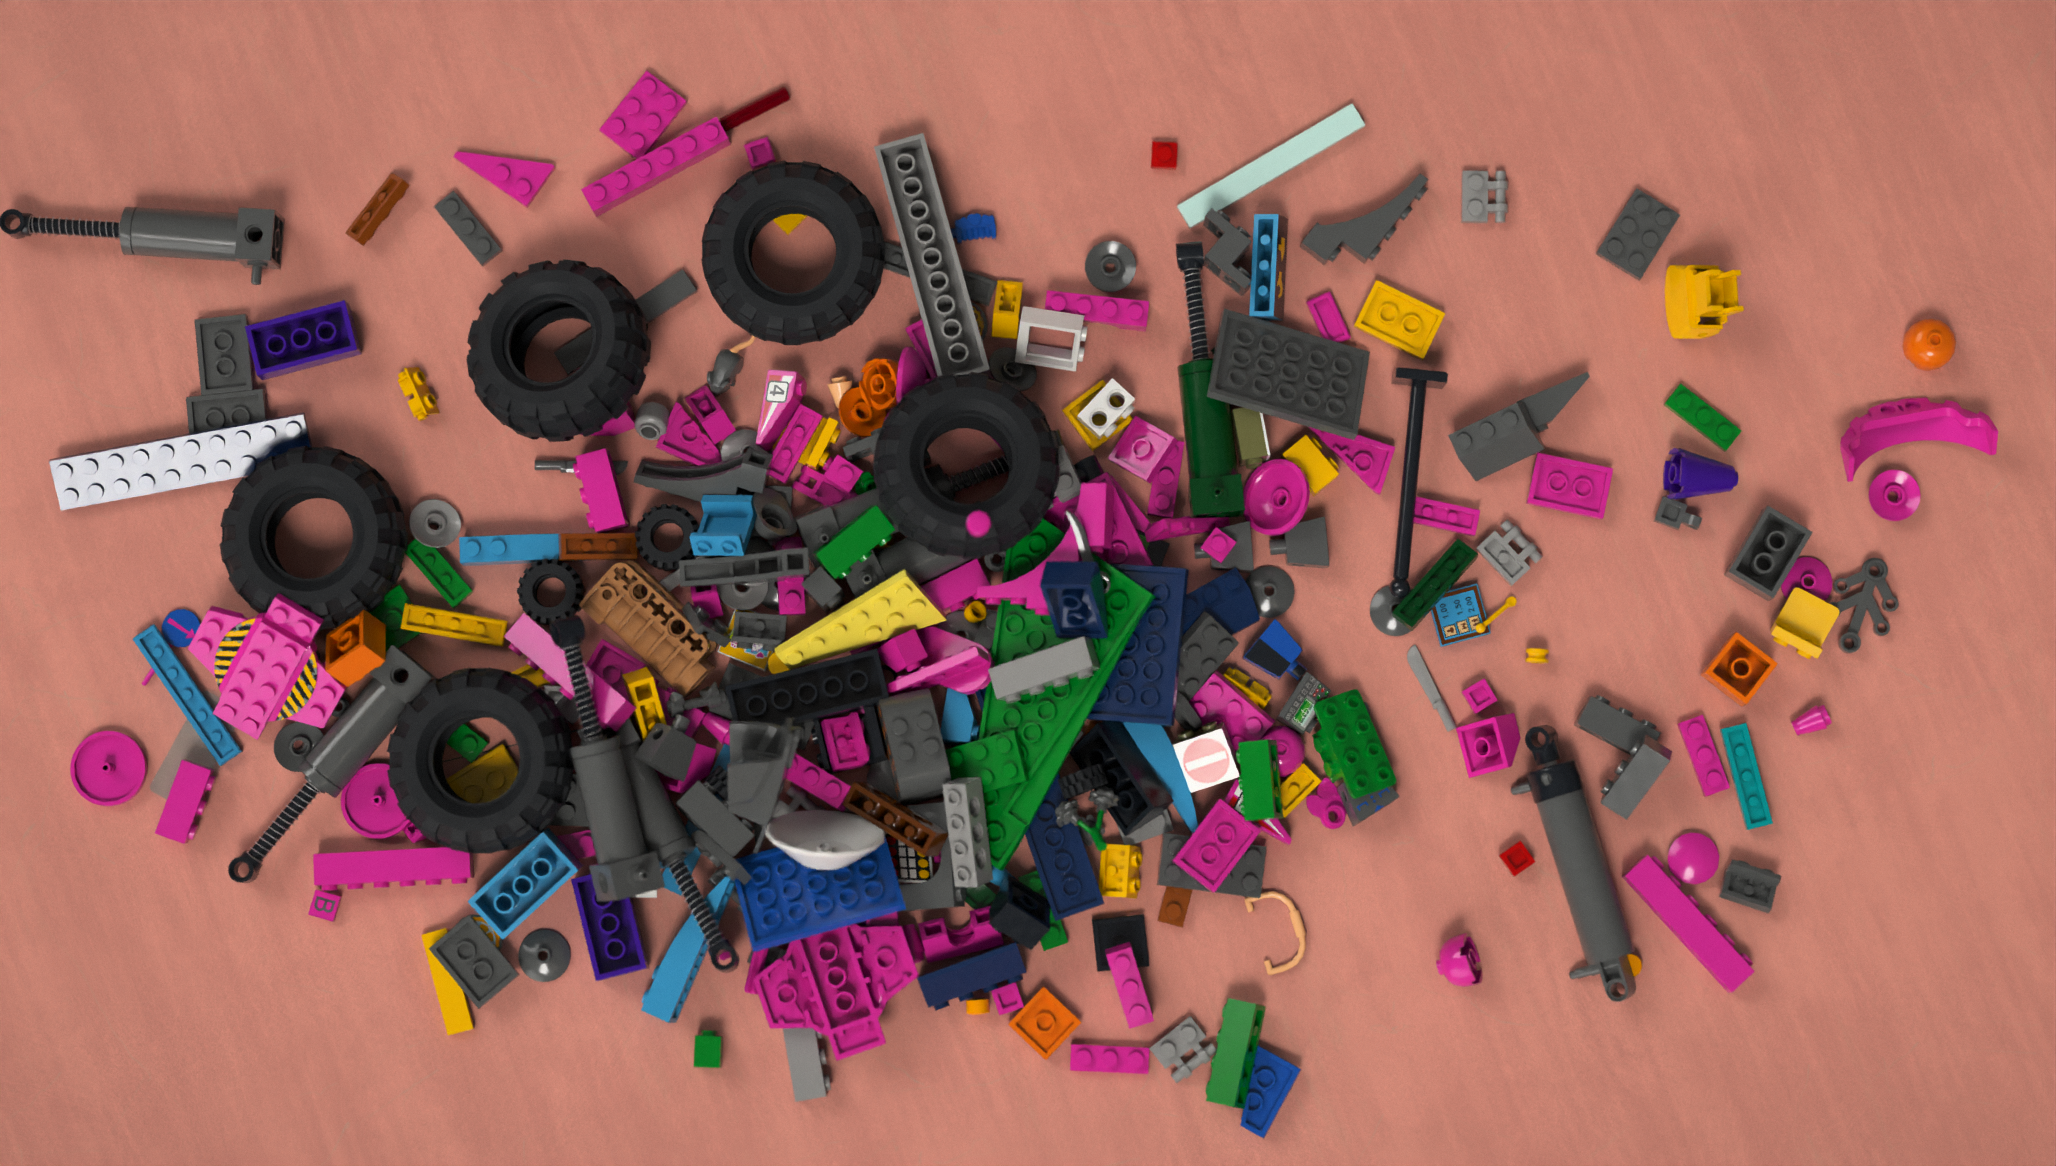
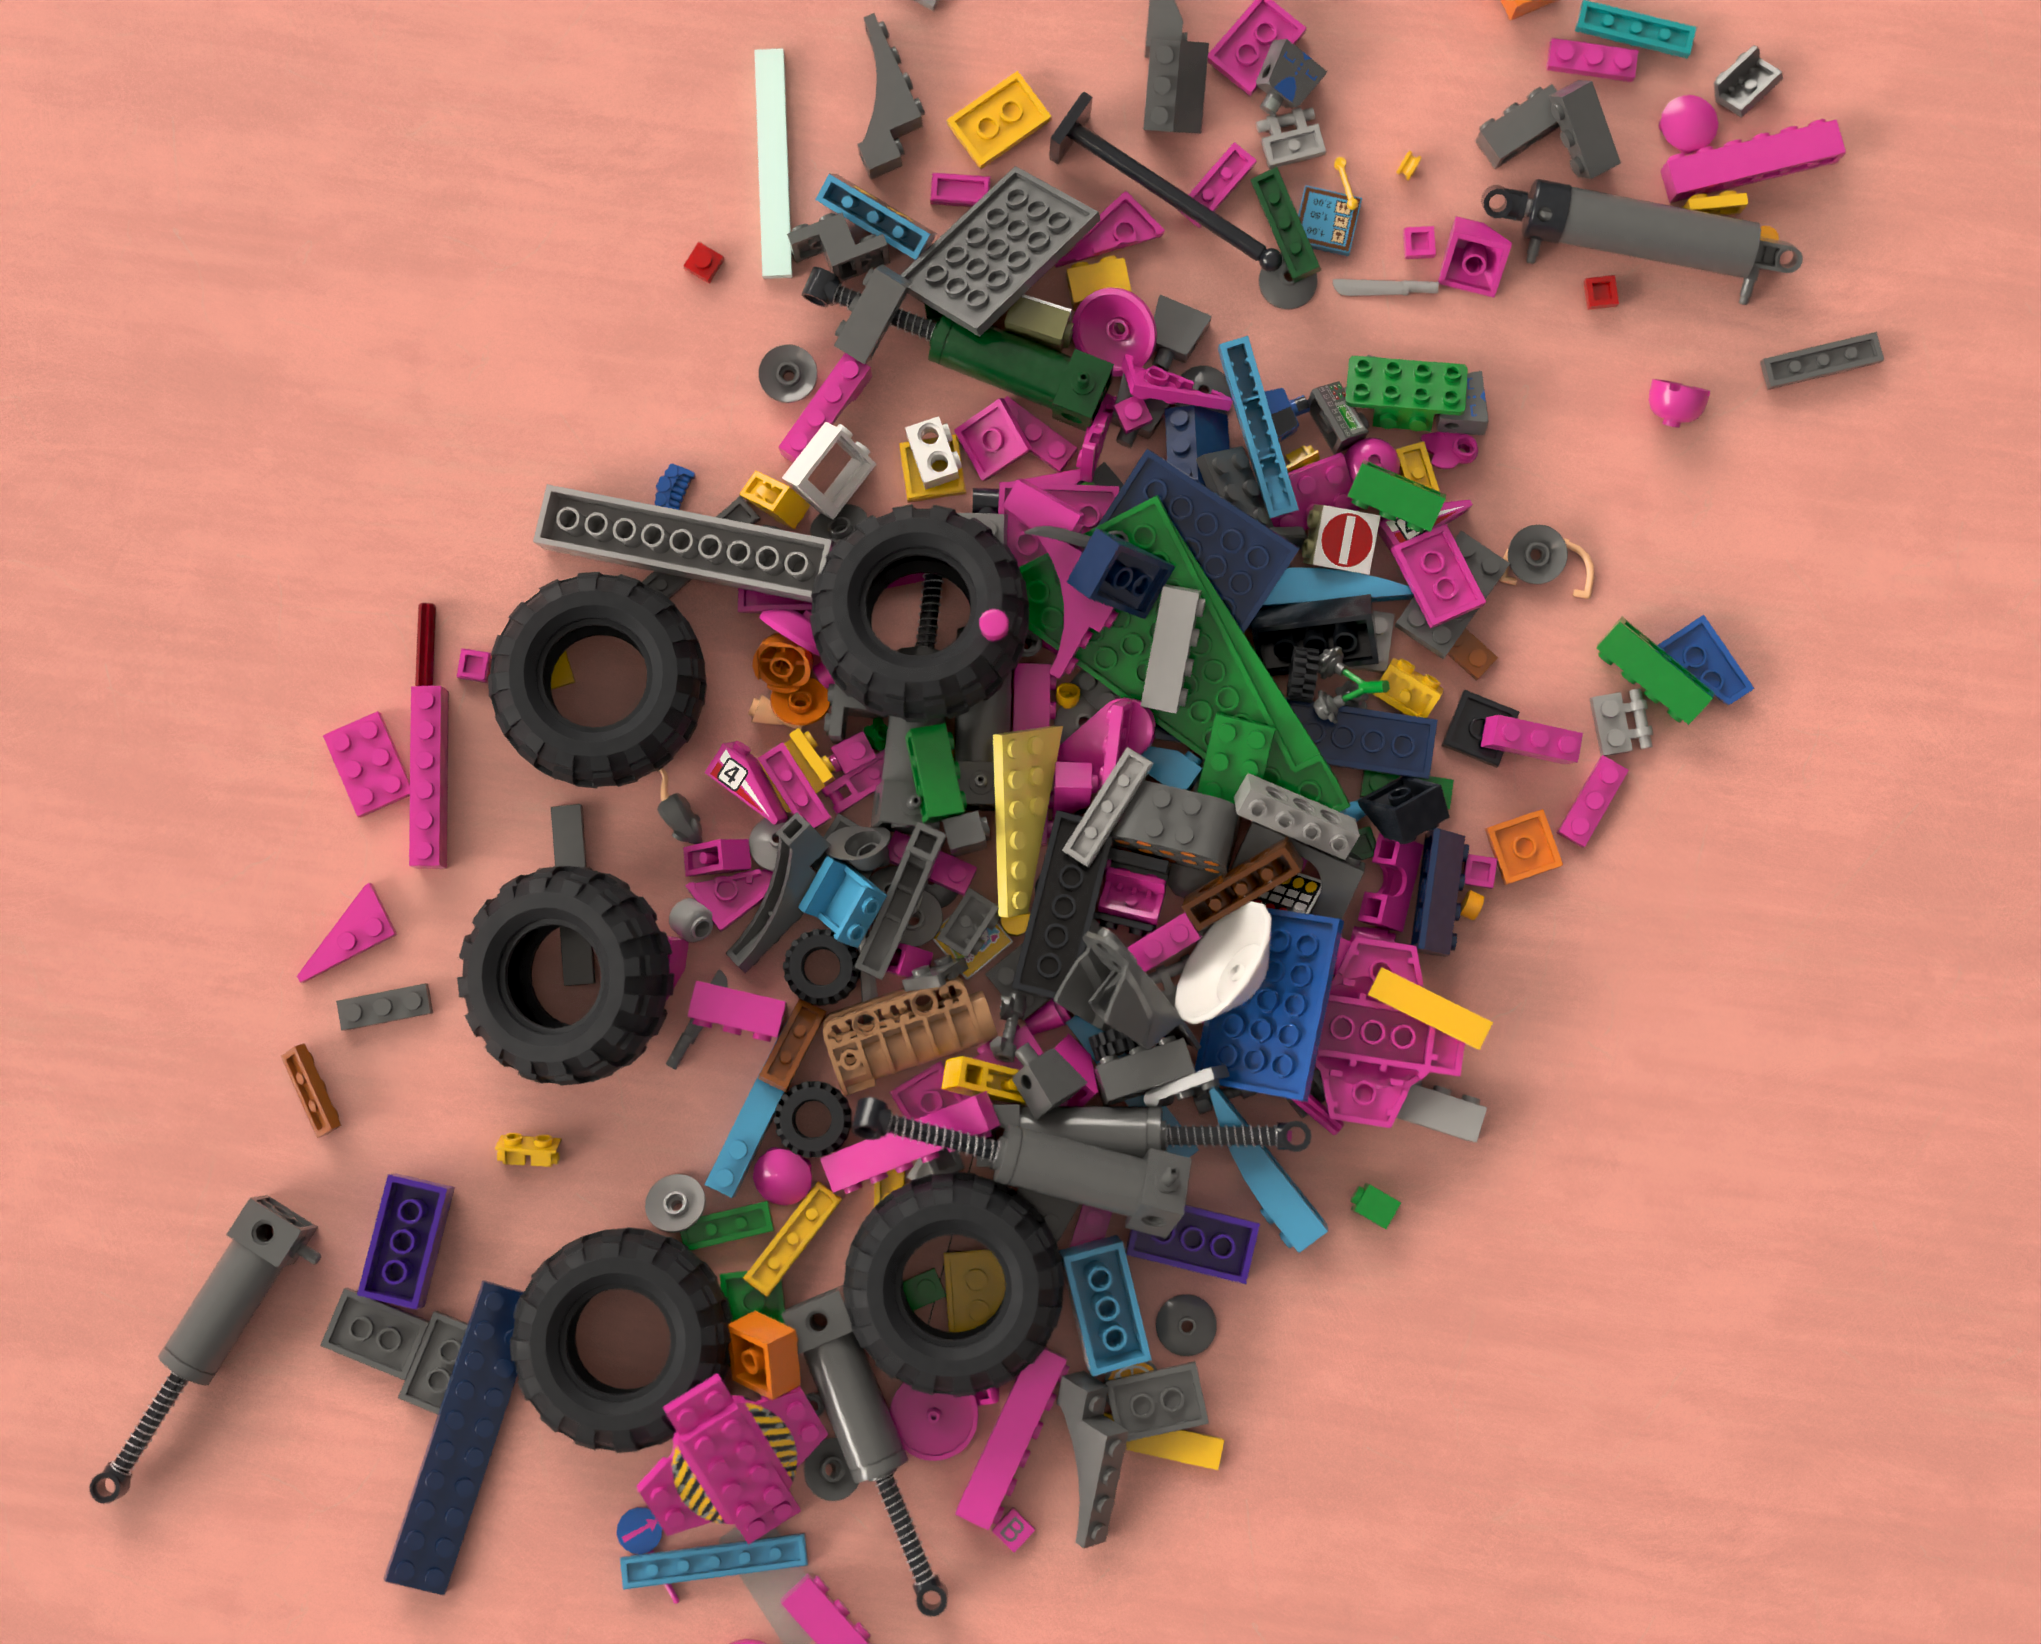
camera: 65 degrees left, 0 degrees up
(412, 937) = (1098, 1453): none -> dark grey arch
(496, 592) = (782, 1176): none -> dark pink dish
(875, 1010) = (1430, 1008): none -> yellow tile
(898, 685) = (1108, 807): none -> light grey tile
(1186, 305) = (872, 313): none -> dark grey brick
(1252, 559) = (1169, 387): none -> dark pink wing
(1256, 645) = (1257, 426): none -> dark azure slope
(1266, 920) = (1552, 551): none -> dark grey dish
(1552, 524) = (1287, 76): none -> dark grey torso
(1556, 1060) = (1822, 360): none -> dark grey plate
(1630, 901) = (1724, 204): none -> yellow plate

